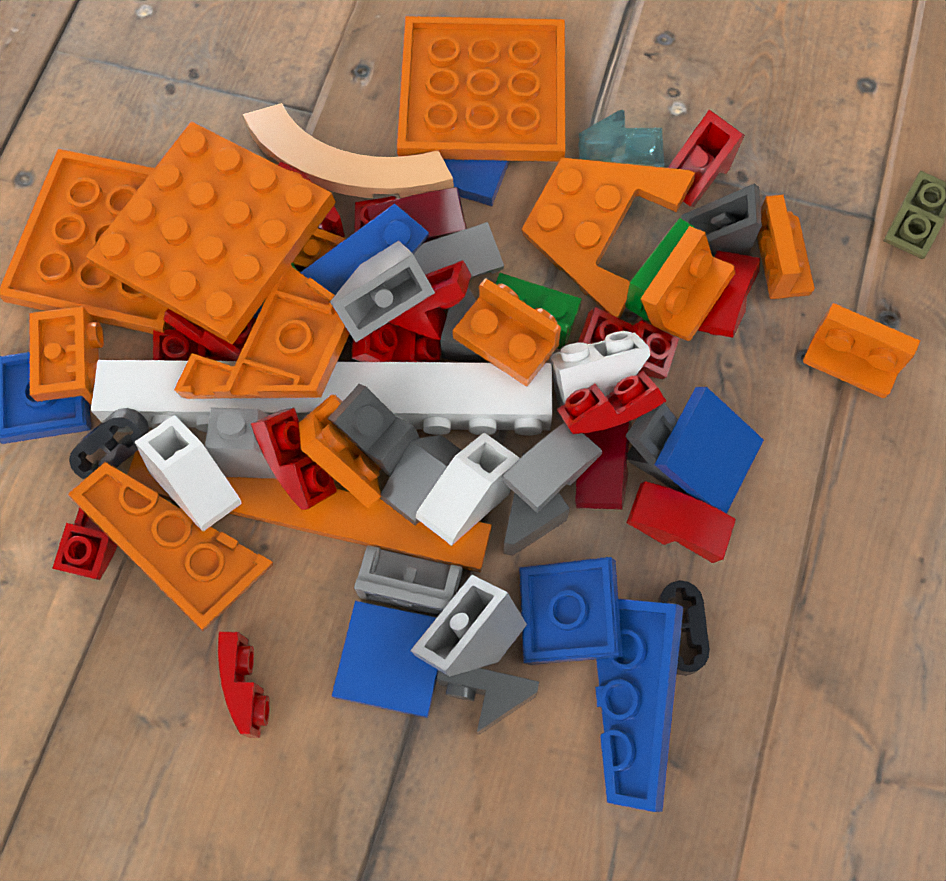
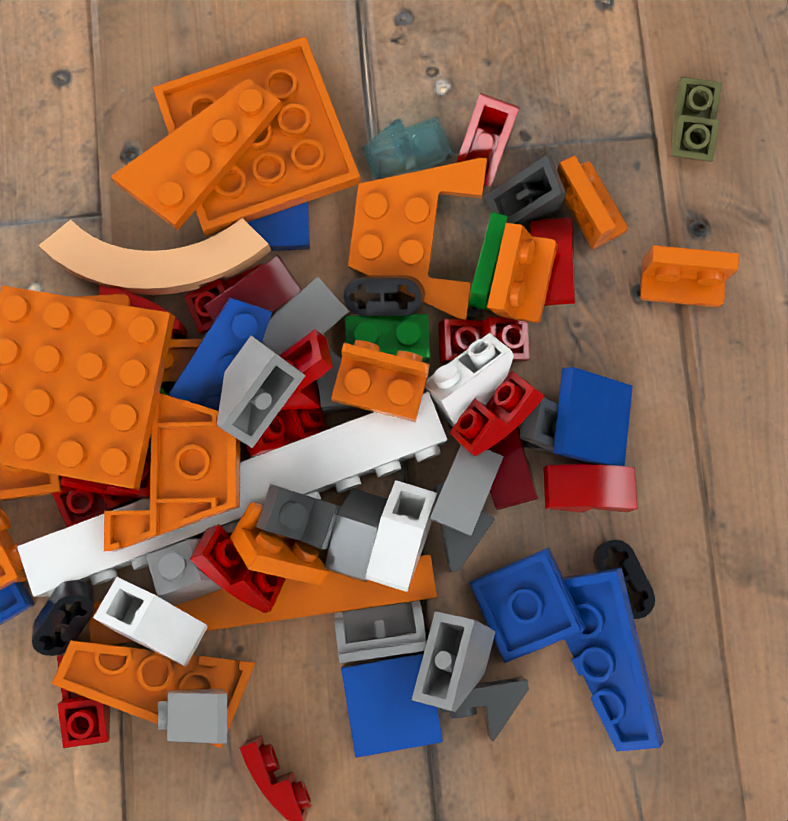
camera: 25 degrees left, 10 degrees up
(189, 575) = (194, 716): none -> light grey slope
(416, 83) = (195, 157): none -> orange wing
(548, 256) = (384, 305): none -> black beam

